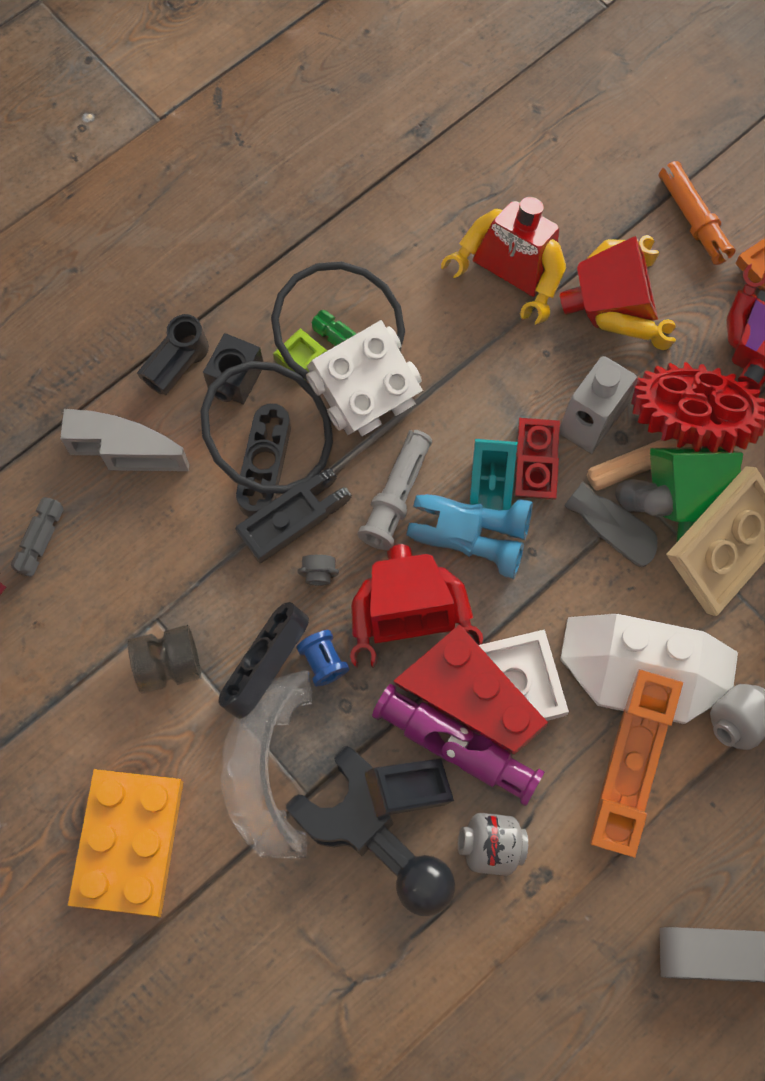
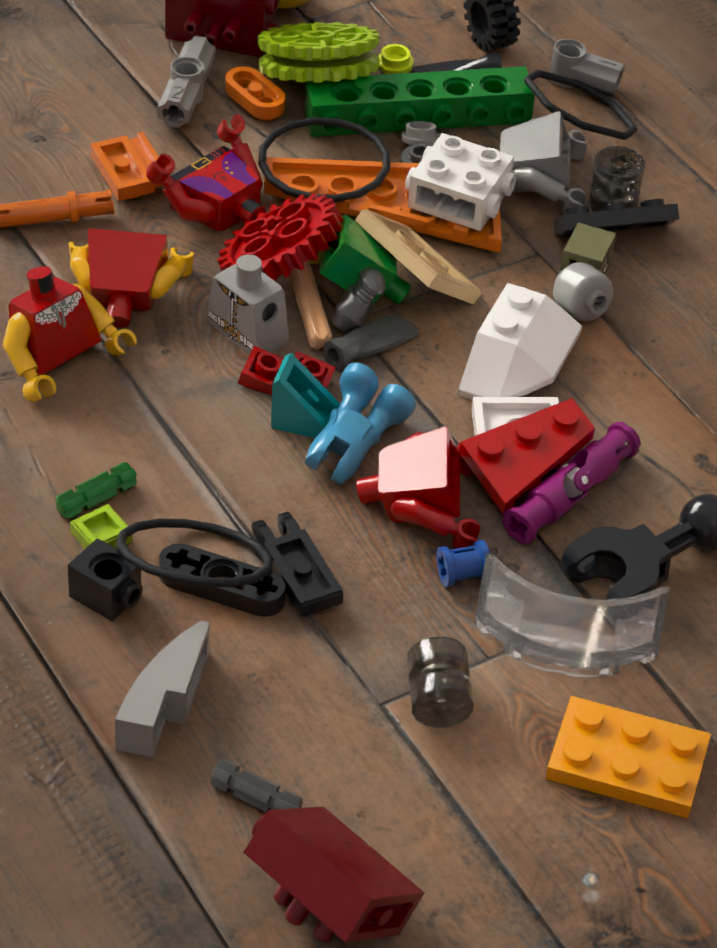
camera: 85 degrees left, 25 degrees down
(173, 357) = (61, 623): black piece -> none
(263, 660) = (476, 607): black beam -> none
(318, 569) = (364, 553): dark grey plate -> none
(324, 267) = (73, 524): black piece -> none
(365, 379) = (162, 467): white brick -> none
(390, 504) = (309, 484): light grey pin -> none
(408, 787) = (613, 512): black tile -> none
(493, 844) = (674, 468): light grey head -> none
(634, 762) = (609, 372): orange slope -> none

